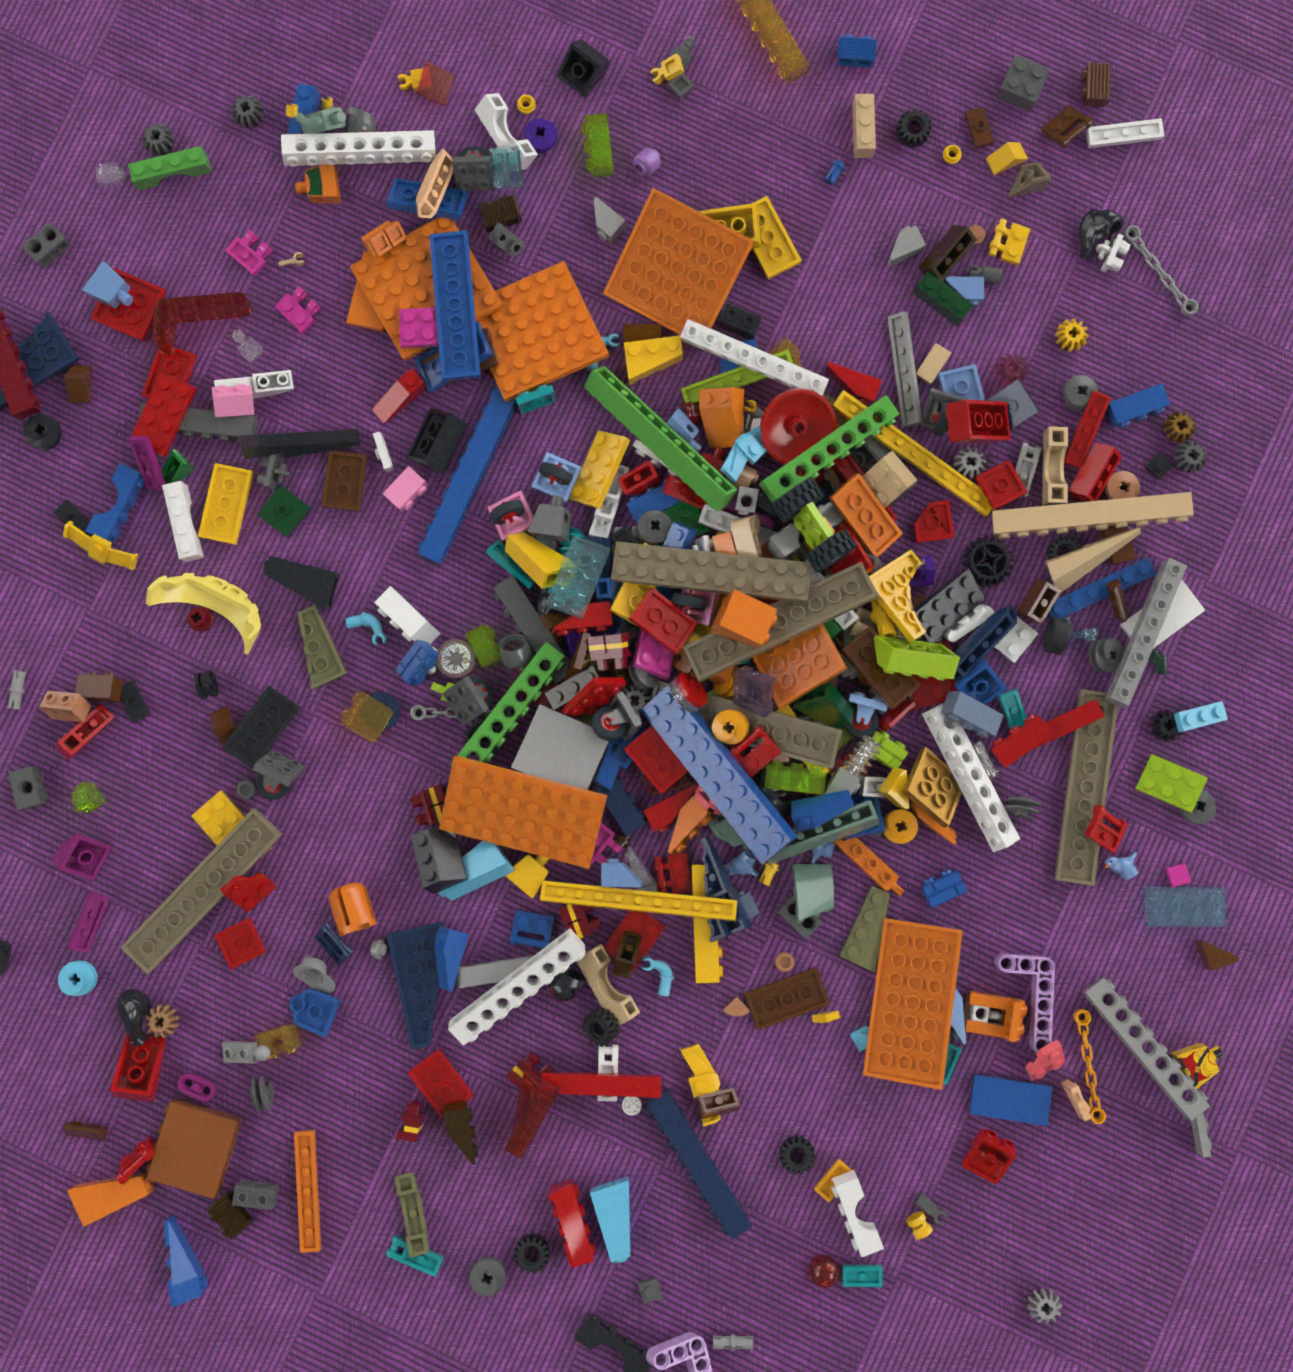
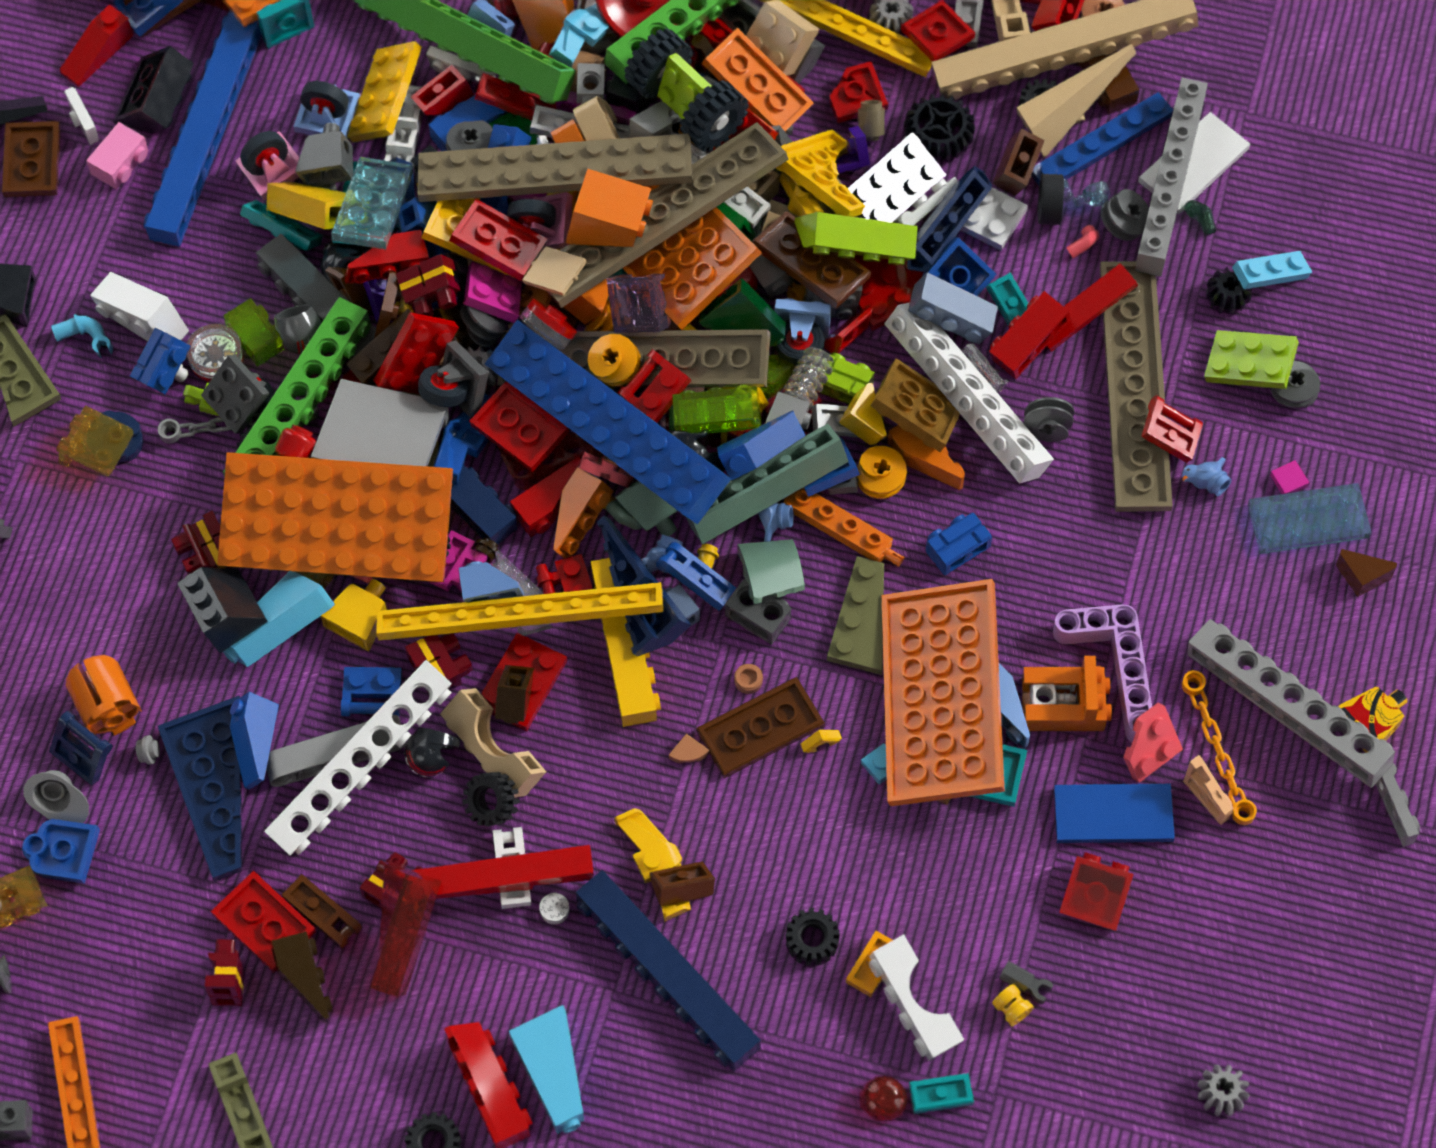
camera: 10 degrees left, 20 degrees down
(479, 1082) = (321, 911): none -> reddish brown plate
(502, 754) = (295, 442): none -> red head
(665, 974) = (576, 719): medium azure piece -> none
(699, 654) = (554, 271): none -> tan piece
(761, 889) = (695, 575): none -> blue plate
(940, 549) = (871, 119): none -> dark tan brick
(1073, 670) = (1089, 237): none -> coral arm
(1117, 600) = (1126, 146): reddish brown slope -> none

